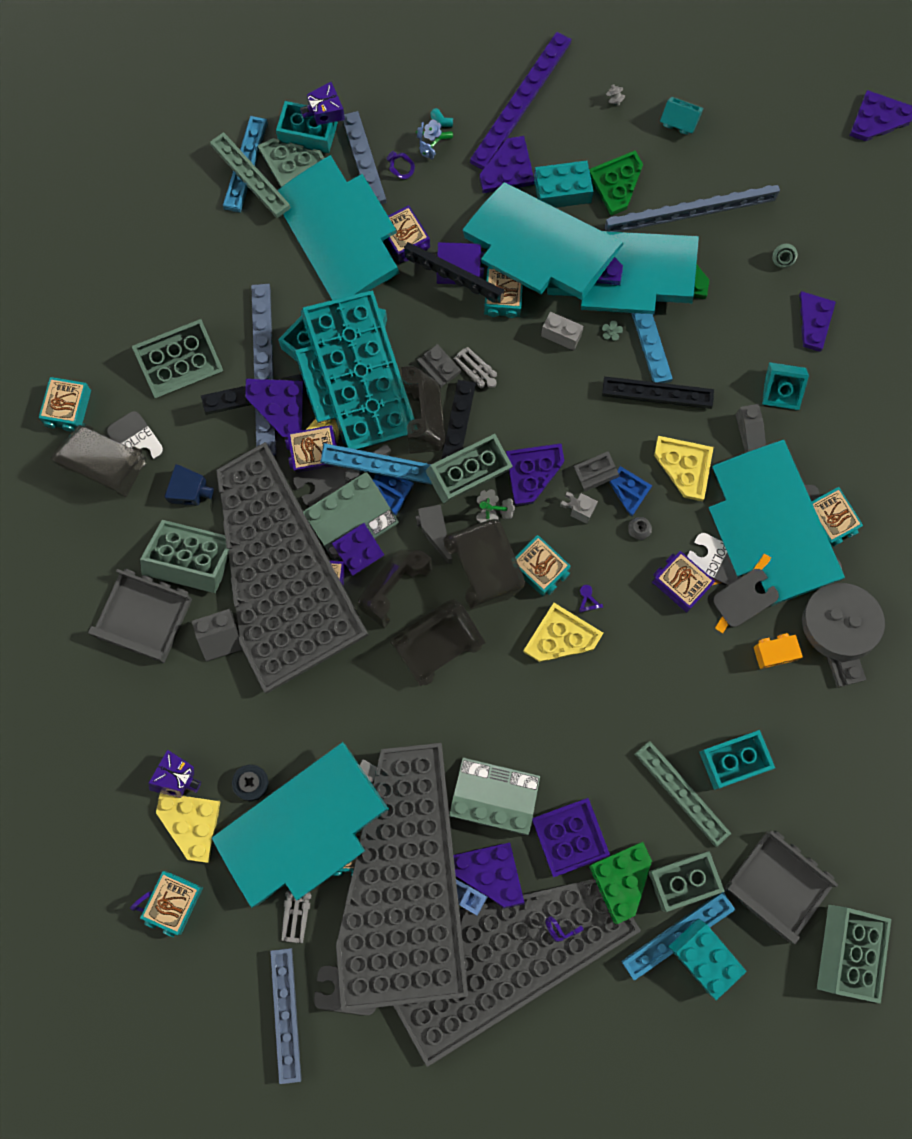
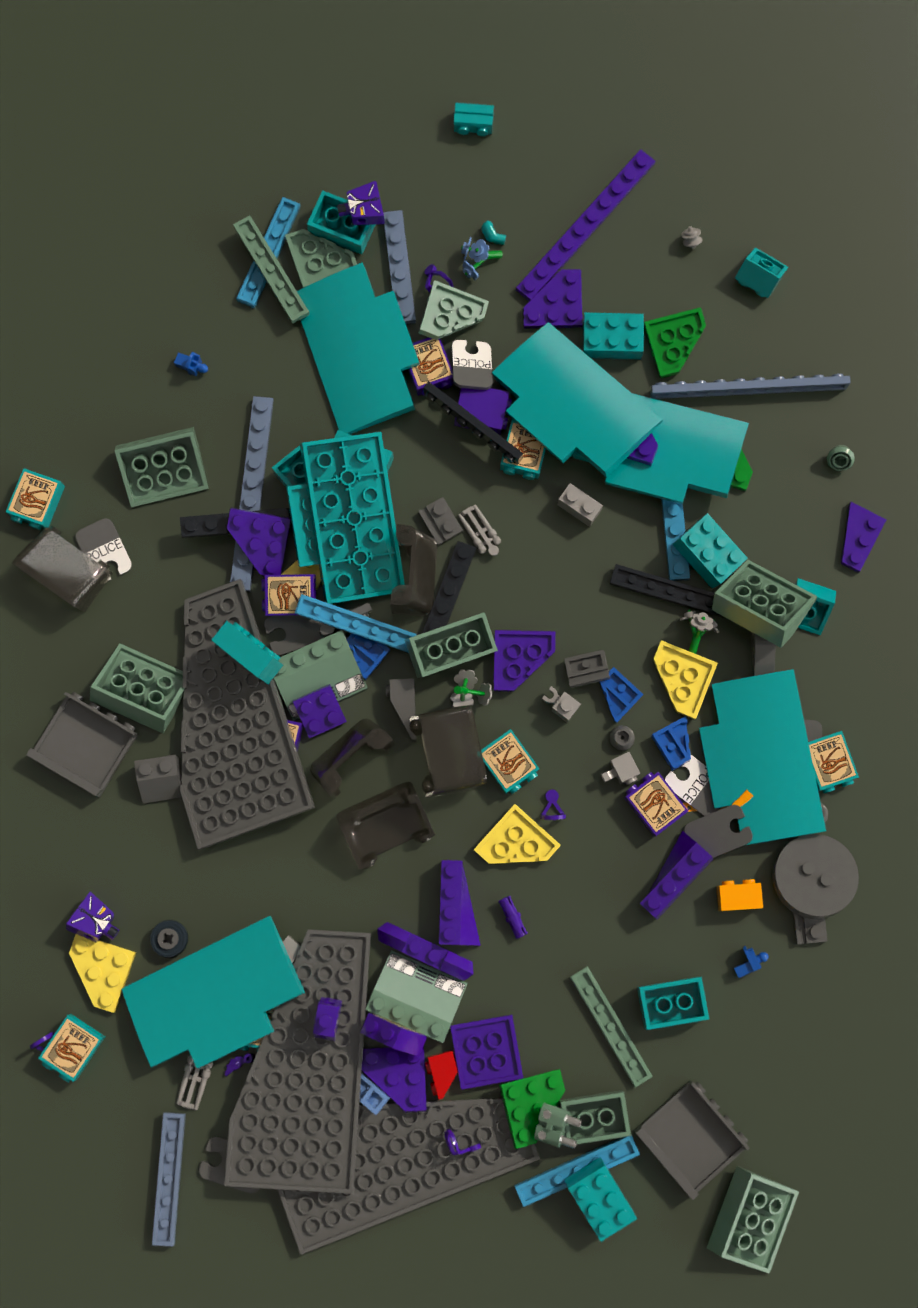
camera: 10 degrees right, 5 degrees up
(187, 487) = (151, 613): dark blue torso -> none
(190, 266) = (190, 363): none -> blue piece
(283, 501) = (248, 651): none -> teal brick
(334, 890) = (237, 1063): none -> dark purple piece
(407, 27) = (473, 119): none -> teal brick
(414, 830) = (327, 1018): none -> dark purple torso
(416, 185) = (450, 311): none -> plate
(443, 231) = (472, 370): none -> piece
(480, 834) = (393, 1034): none -> dark purple brick
(495, 752) = (425, 951): none -> dark purple brick
(517, 712) = (456, 909): none -> dark purple wedge
(533, 863) = (443, 1070): none -> red slope
(571, 707) = (513, 917): none -> dark purple pin
(612, 331) = (635, 512): sand green plant -> none
(647, 555) = (622, 768): none -> light grey brick
(648, 895) = (552, 1125): none -> sand green piece
(686, 350) = (710, 551): none -> teal brick
(688, 524) = (674, 743): none -> blue wing
(694, 411) = (702, 623): none -> light grey plant
(716, 639) = (679, 871): none -> dark purple wedge
(745, 385) = (763, 603): none -> sand green slope
(802, 712) = (753, 963): none -> blue piece

